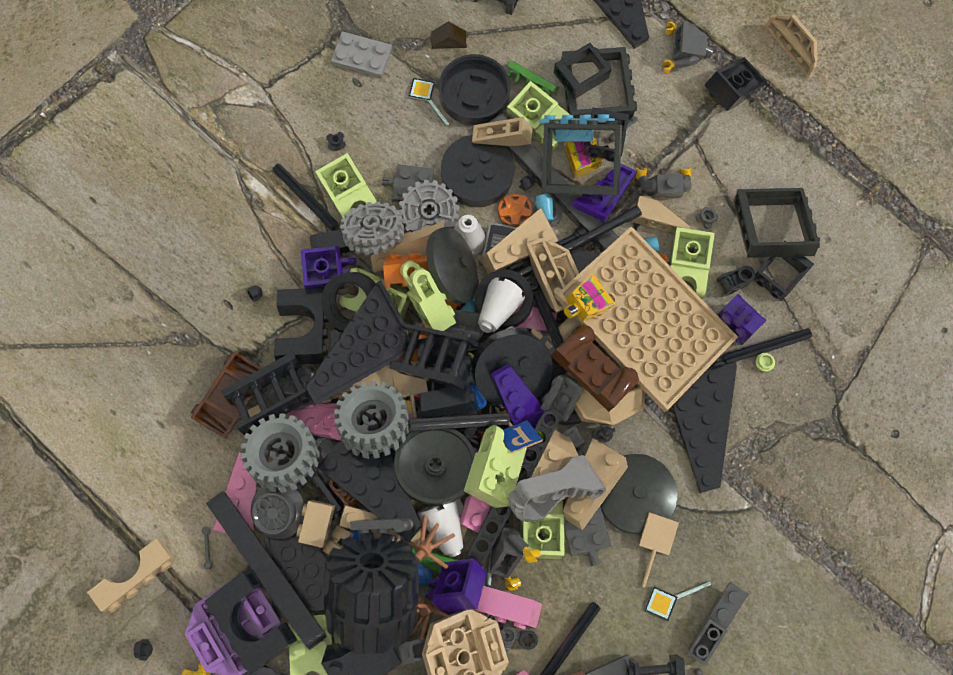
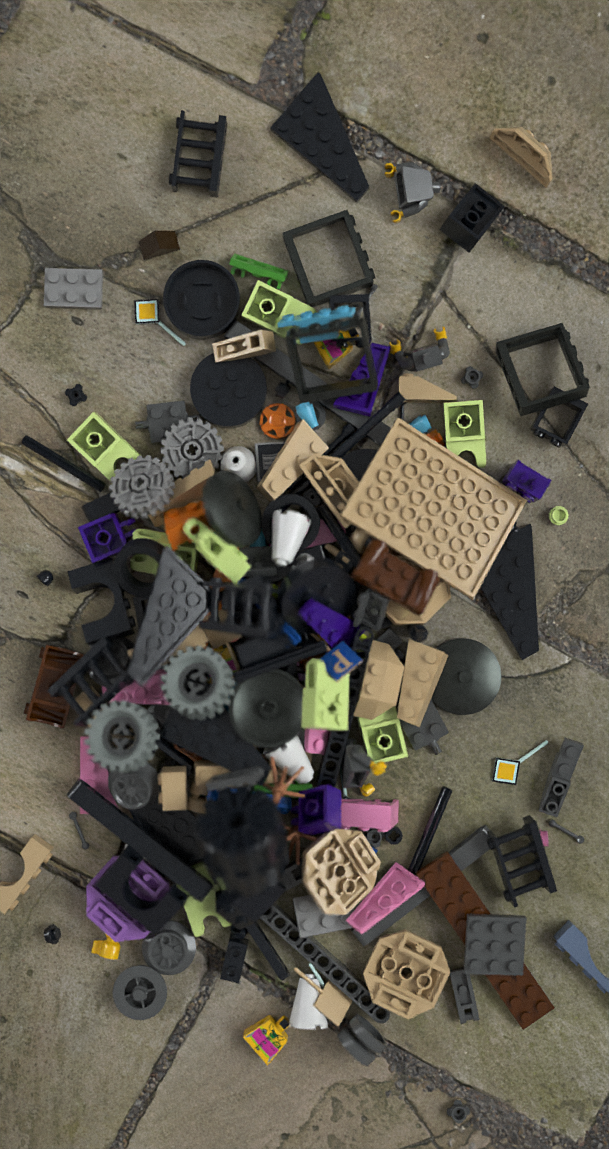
camera: 15 degrees left, 15 degrees up
(549, 489) = (402, 689): light grey arm -> none
(569, 81) = (293, 265): black window -> none
(588, 300) = (373, 514): torso -> none
(657, 536) = (490, 712): tan piece -> none
(733, 281) = (511, 441): black piece -> none
(767, 346) = (557, 498): black axle -> none

